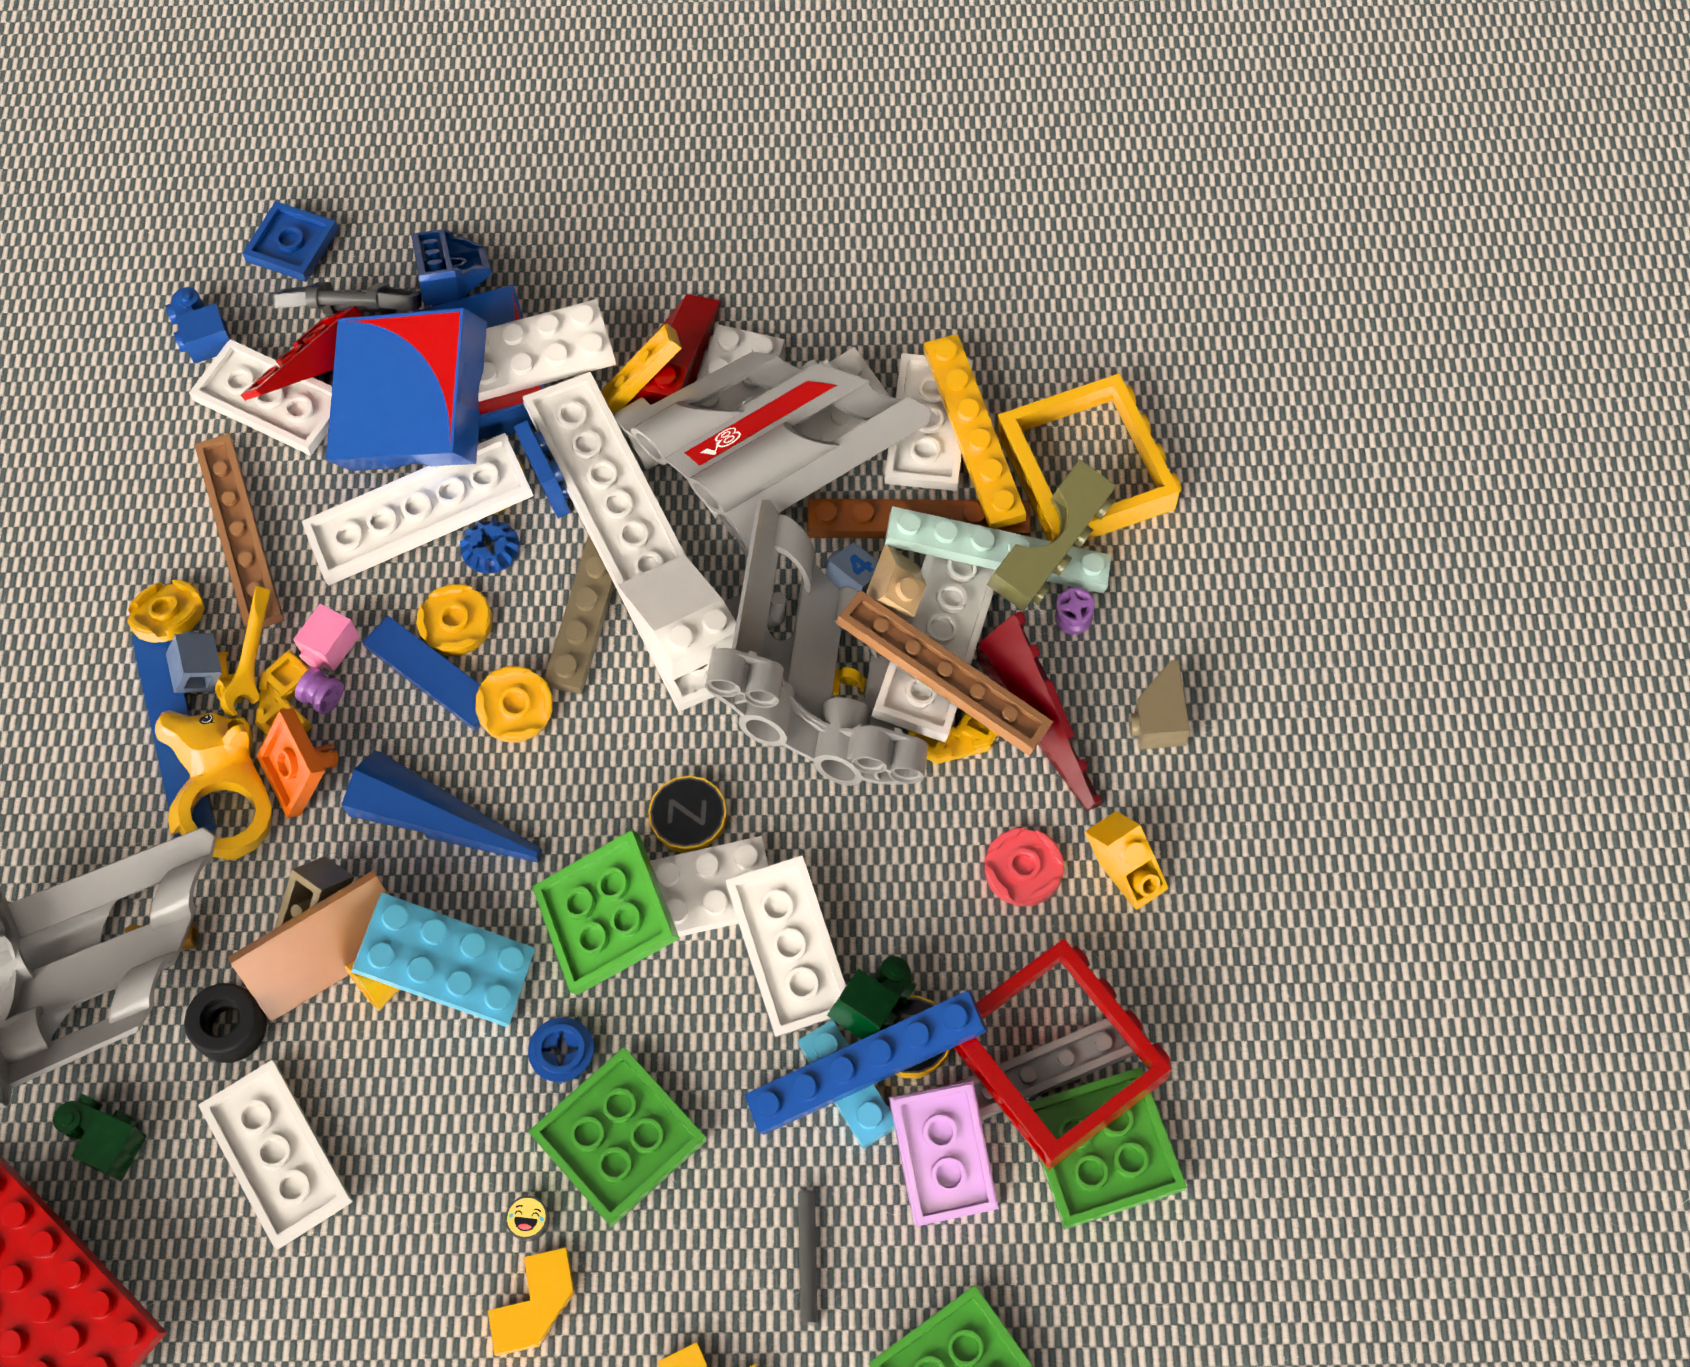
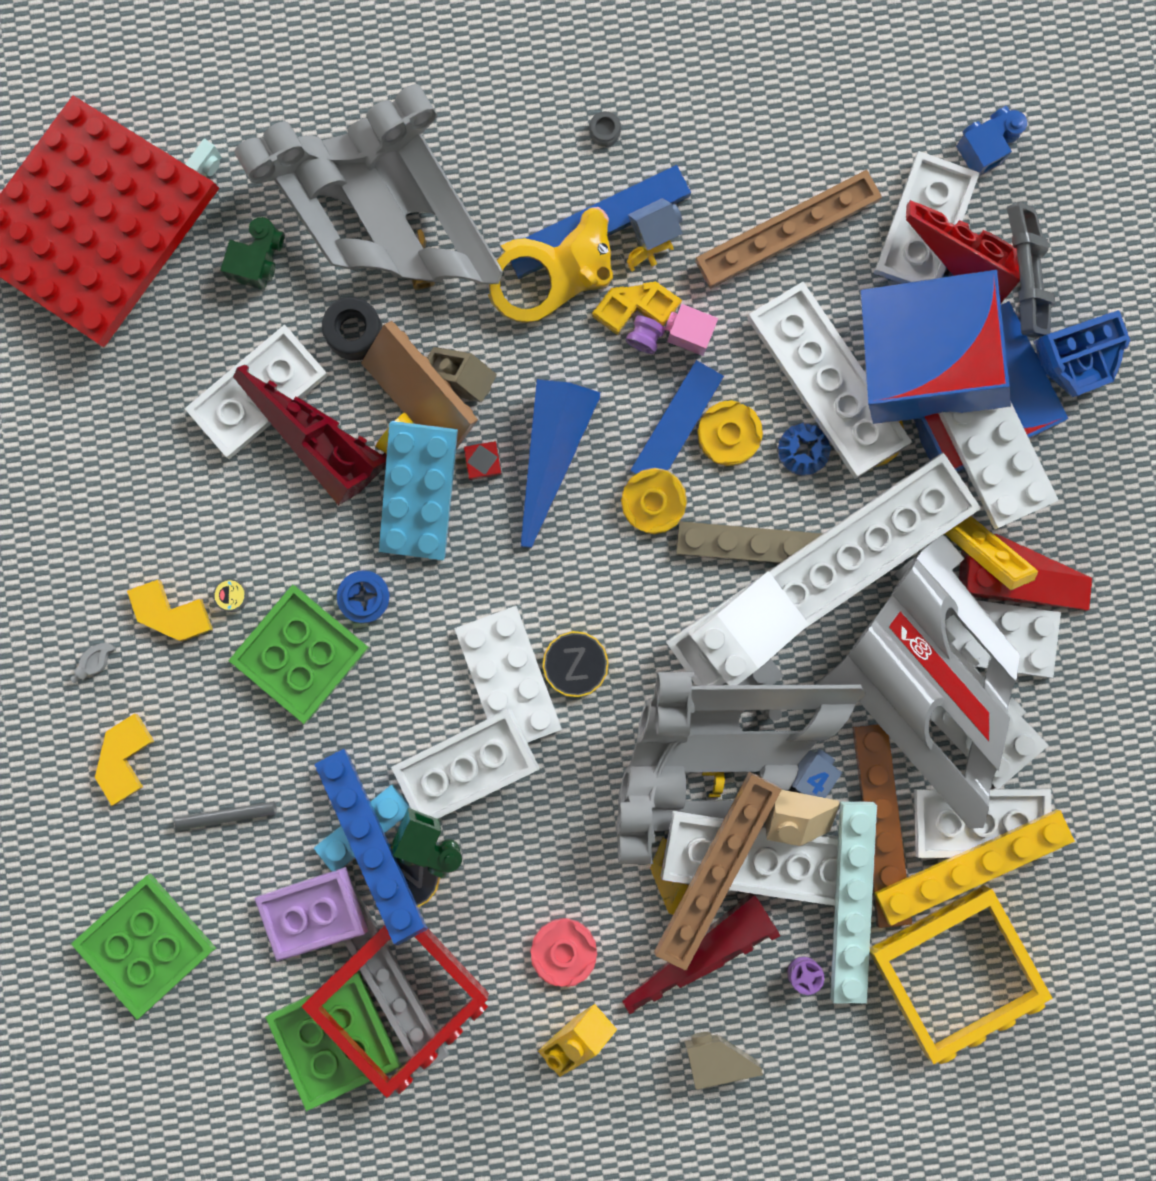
camera: 80 degrees right, 20 degrees up
(65, 710) = (605, 129): none -> dark grey tile
(165, 611) = (702, 187): yellow tile -> none
(243, 681) = (645, 269): yellow piece -> none
(290, 241) = (1095, 200): blue plate -> none
(293, 762) = (573, 330): orange tile -> none
(370, 1068) = (334, 457): none -> dark red wedge
(426, 888) = (482, 460): none -> tile
(544, 468) = (883, 479): blue plate -> none
(605, 912) = (474, 613): bright green plate -> none
(1026, 569) = (902, 976): olive arch -> none

